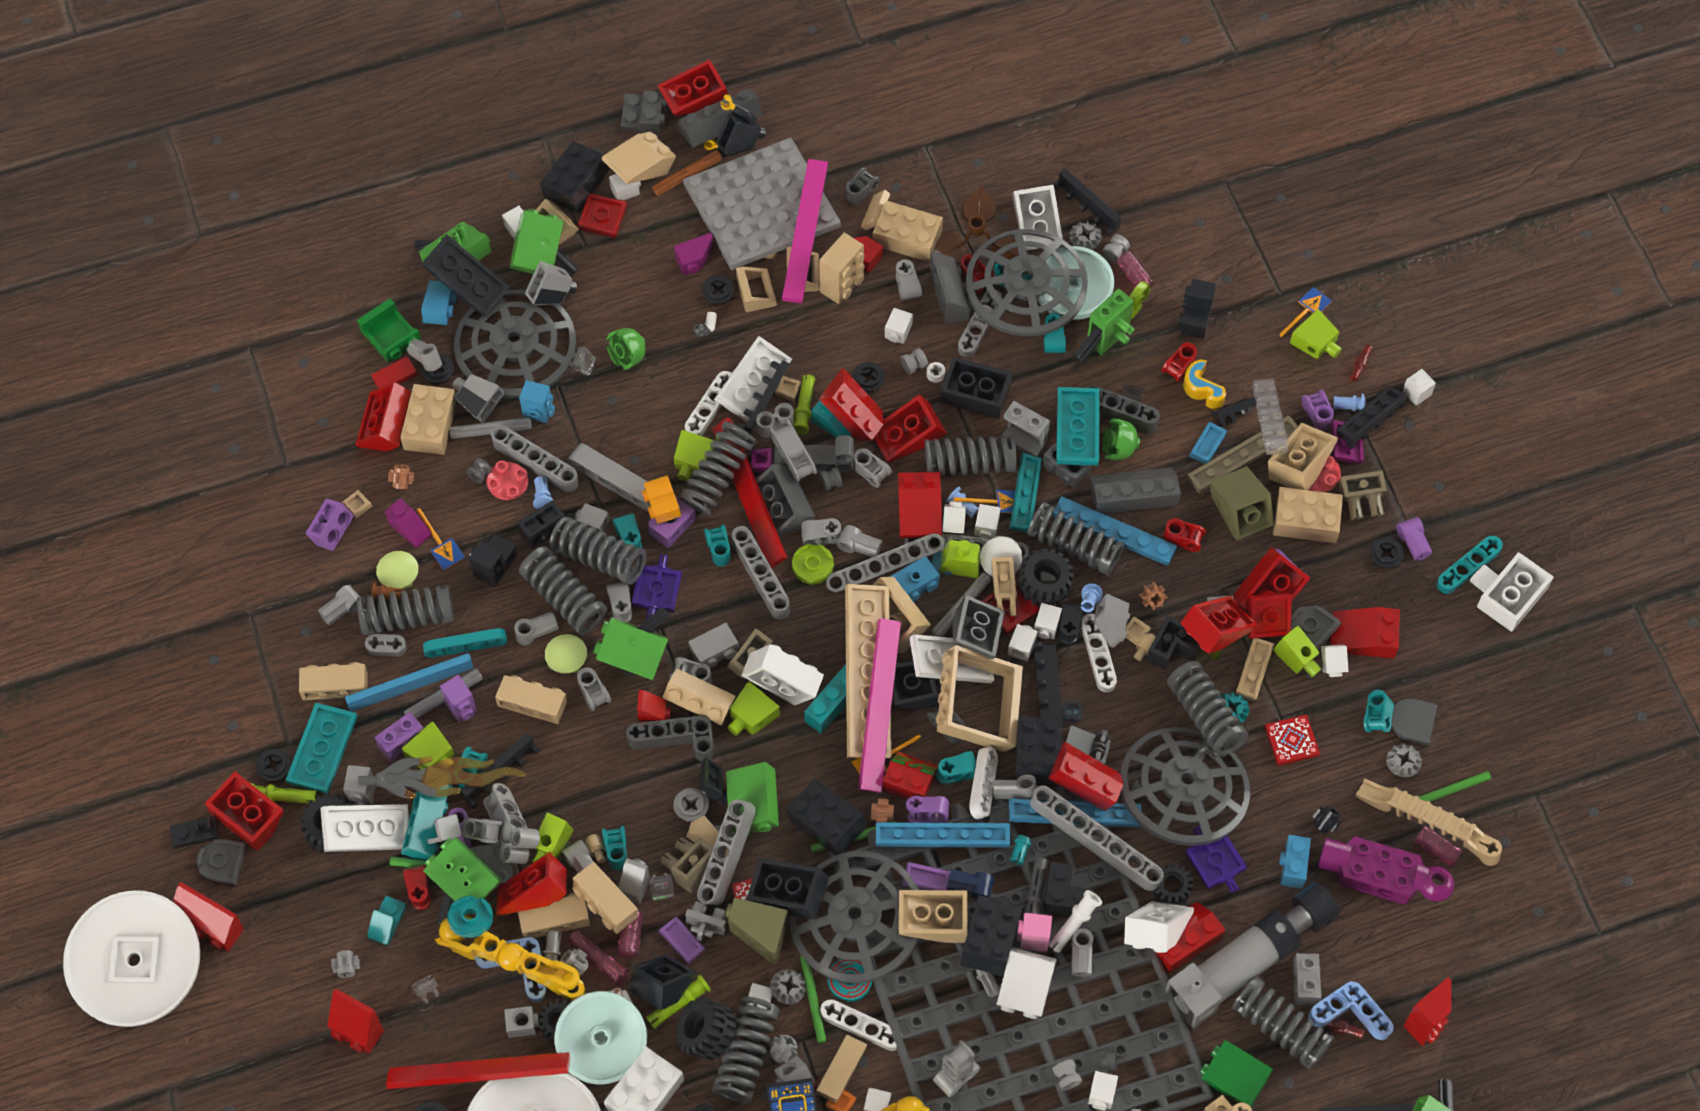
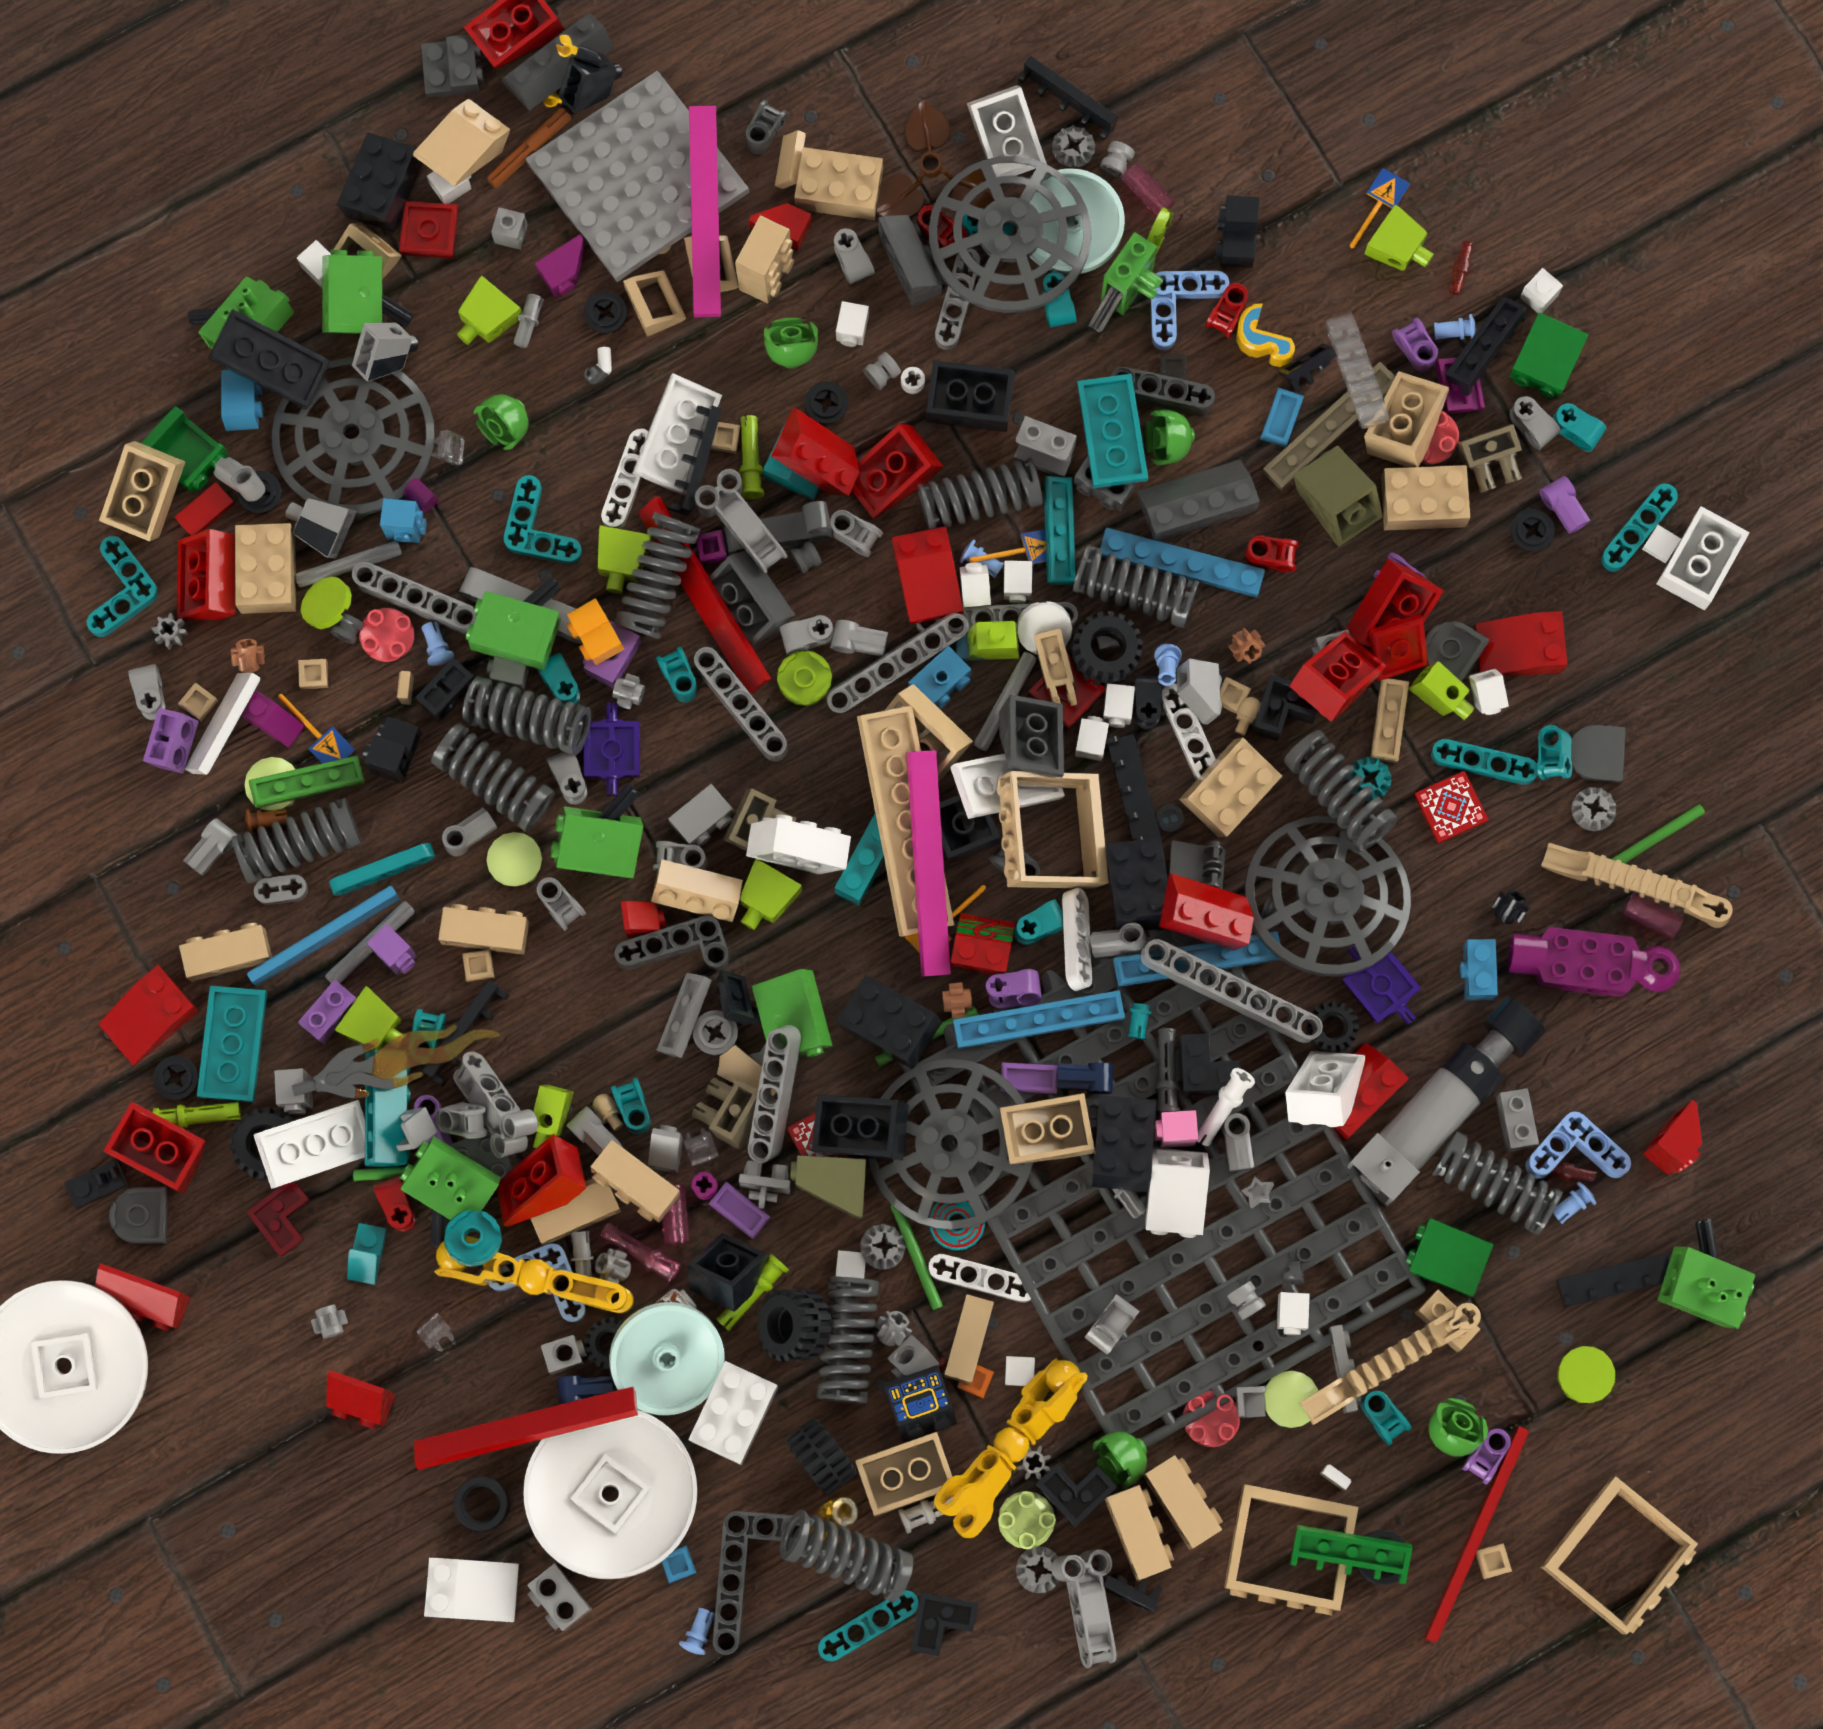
camera: 10 degrees left, 15 degrees up
(264, 716) = (148, 1015): none -> red slope
(321, 487) = (147, 687): none -> light grey piece
(323, 875) = (272, 1217): none -> dark red plate
(325, 421) = (129, 594): none -> teal beam
(348, 450) = (174, 638): none -> light grey gear
(351, 349) = (142, 491): none -> tan brick
(370, 518) = (222, 723): none -> white tile
(423, 571) = (306, 782): none -> bright green tile
(446, 499) = (313, 674): none -> tan tile
(466, 449) = (326, 602): none -> lime tile
(512, 518) = (405, 687): none -> tan tile
(521, 724) = (478, 965): none -> tan tile
(526, 1047) = (577, 1388): none -> dark blue piece
(557, 390) = (421, 494): none -> magenta brick
(604, 487) = (516, 628): none -> bright green piece
(629, 431) = (530, 536): none -> teal beam
(632, 275) = (486, 313): none -> lime torso
(654, 910) = (699, 1179): none -> magenta bush
(660, 222) = (509, 228): none -> light grey brick
(660, 285) = (528, 320): none -> light grey axle
(670, 787) = (684, 1015): none -> light grey plate
(678, 549) = (628, 691): none -> light grey gear
(850, 330) = (791, 342): none -> bright green cylinder
(1091, 994) = (1258, 1192): none -> light grey piece
(1122, 693) = (1230, 787): none -> tan brick
(1138, 345) = (1169, 296): none -> light blue beam
(1324, 708) = (1484, 765): none -> teal beam
(1342, 1052) = (1572, 1204): none -> light blue pin
(1399, 476) = (1536, 424): none -> light grey piece
(1417, 432) = (1548, 356): none -> green panel
(1434, 486) = (1581, 427): none -> teal piece

